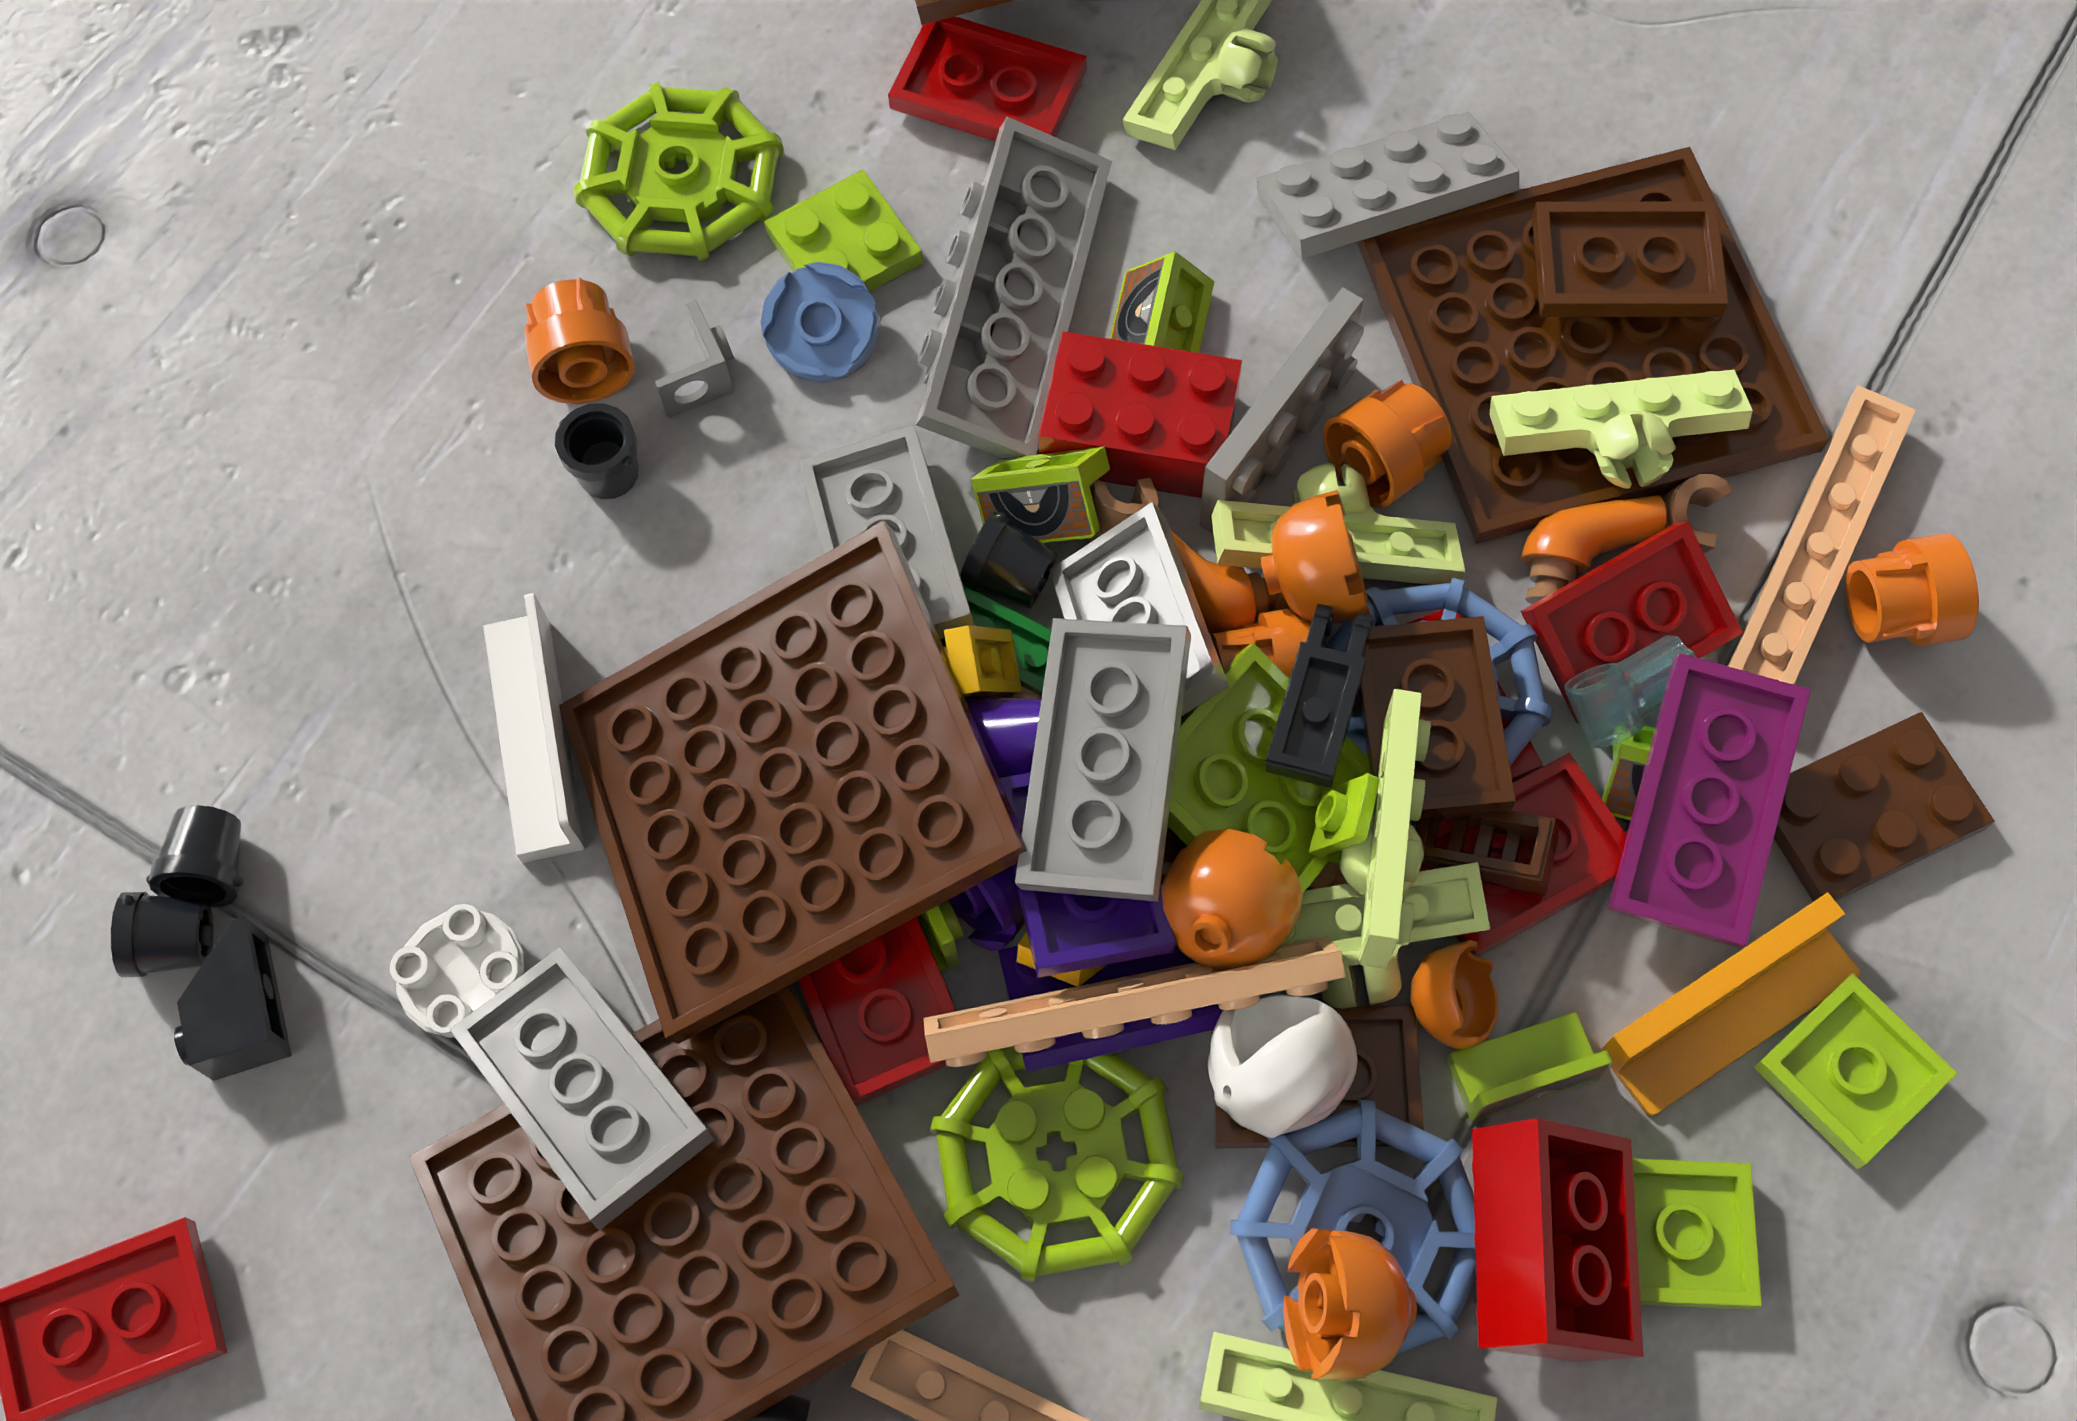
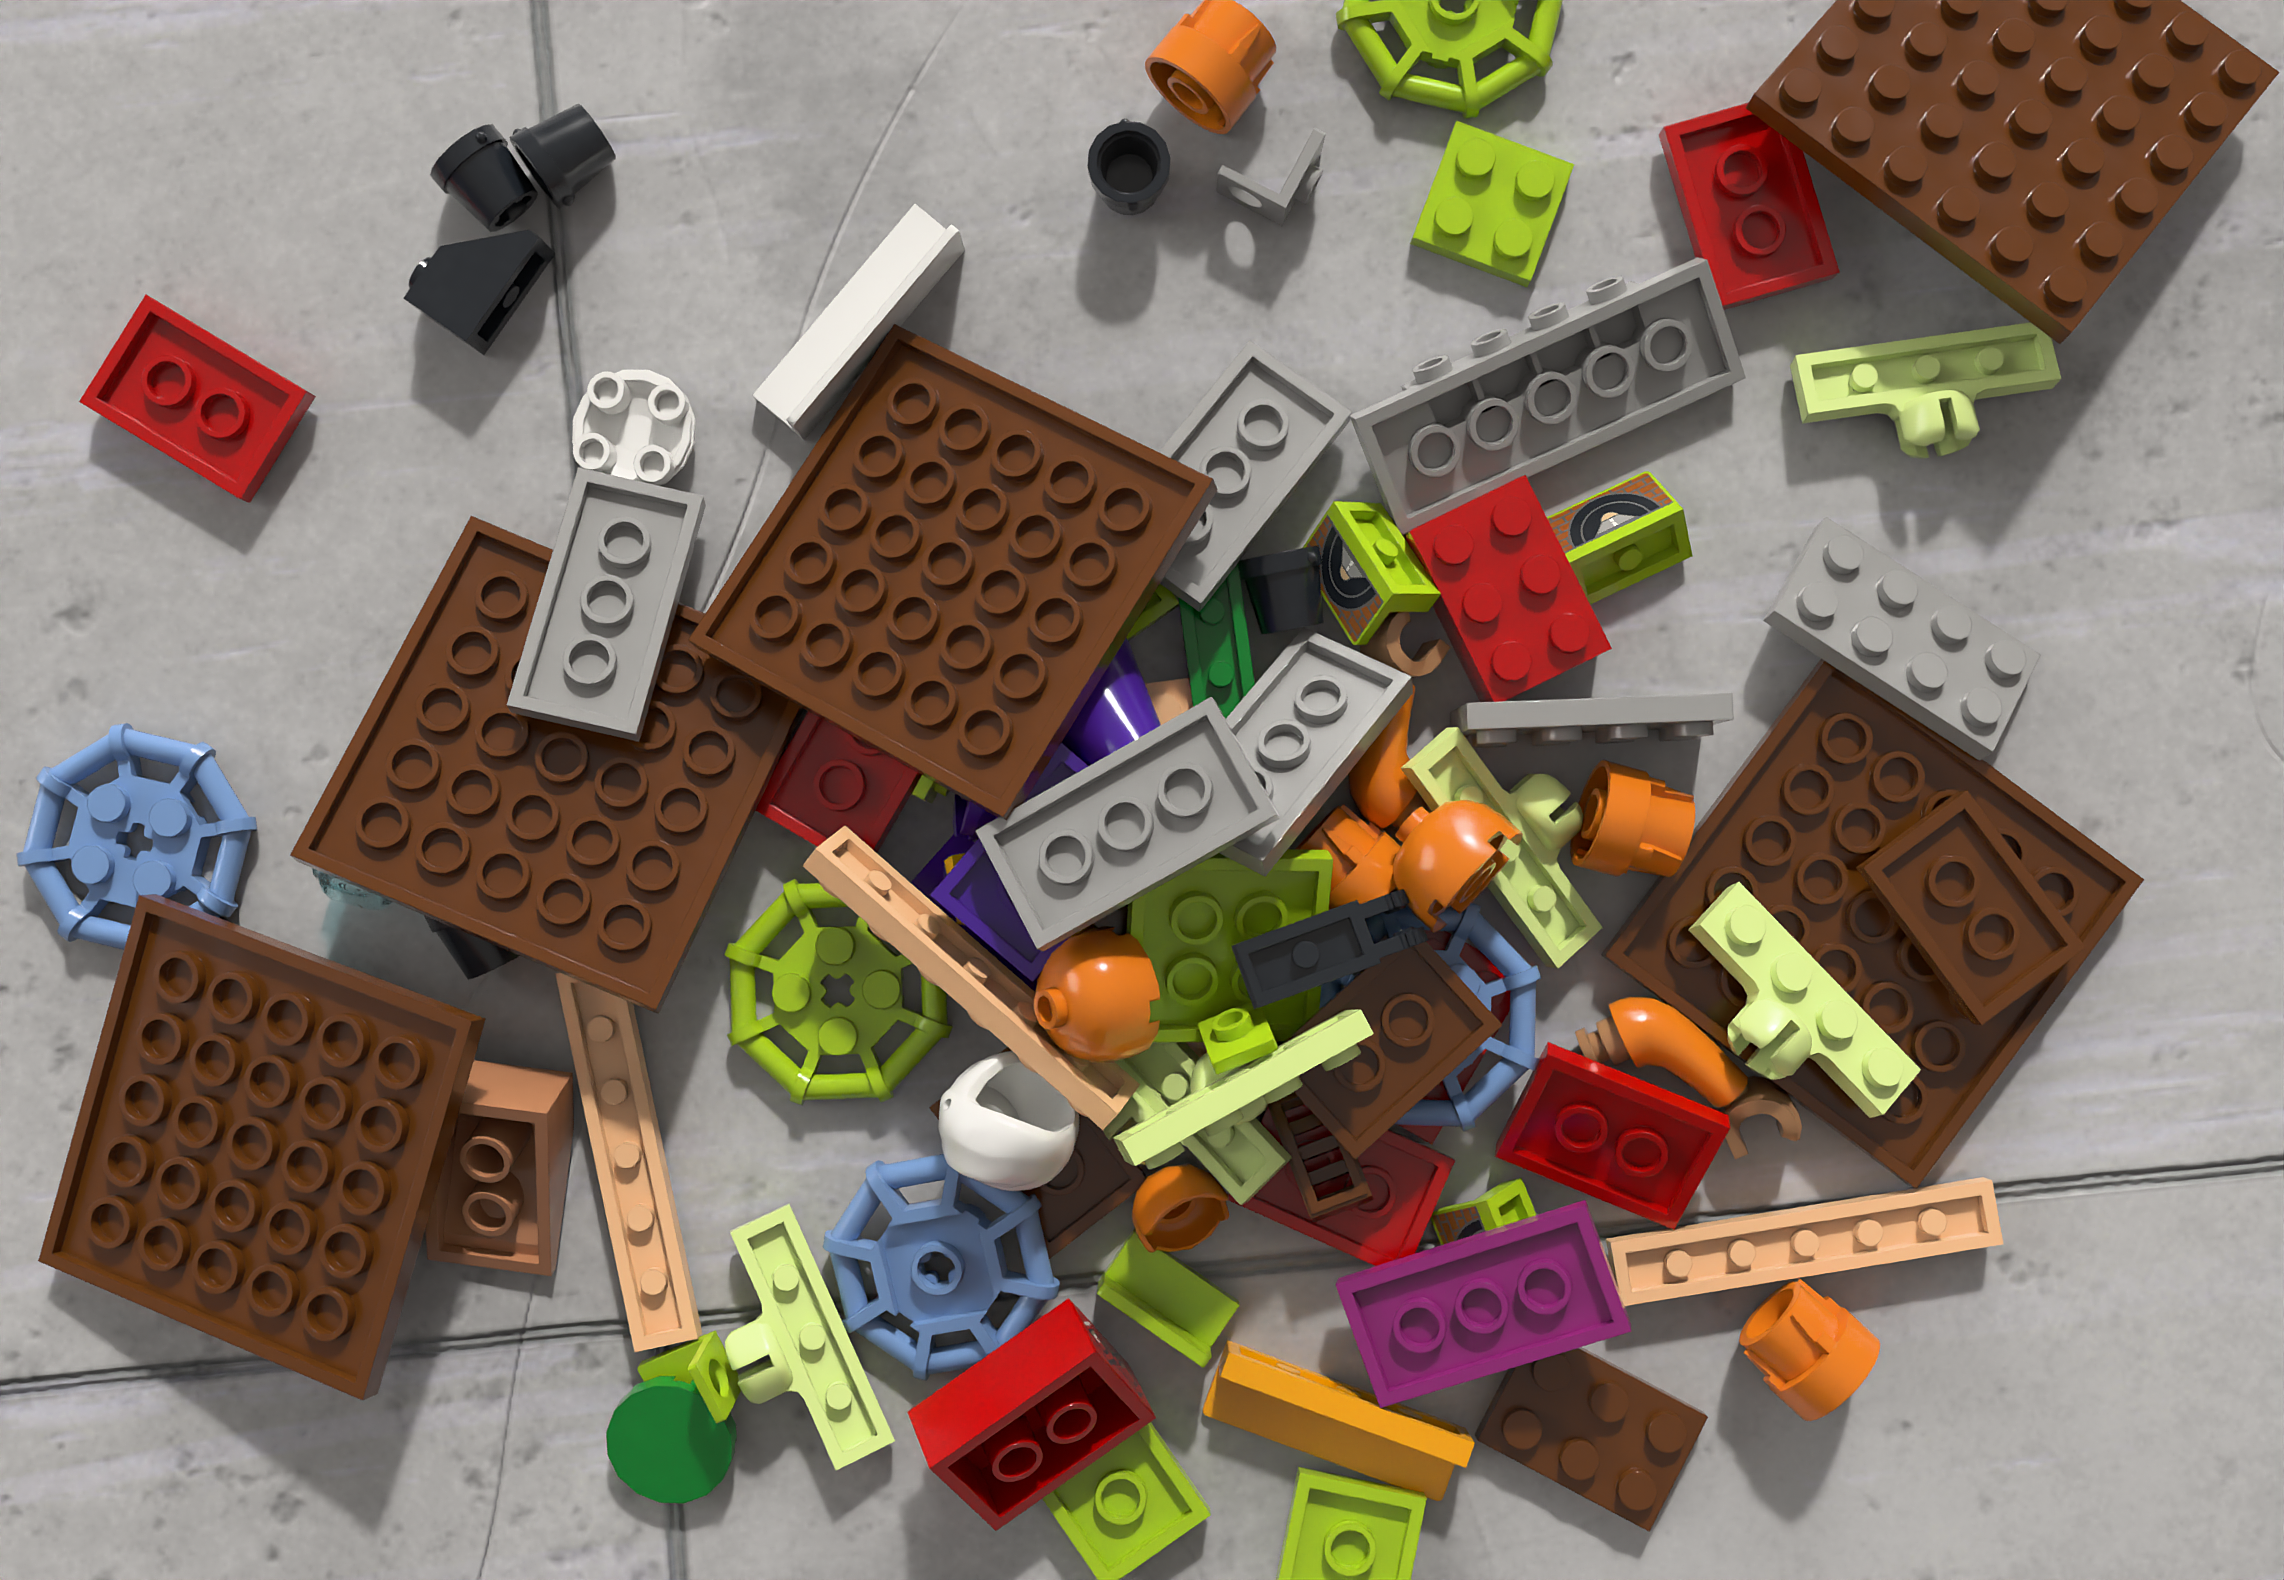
camera: 55 degrees right, 20 degrees up
(820, 322) = (1392, 252): medium blue tile -> none
(983, 660) = (1164, 648): yellow plate -> none
(1349, 1305) = (862, 1299): orange cylinder -> none
(1617, 696) = (1525, 1169): clear light blue piece -> none

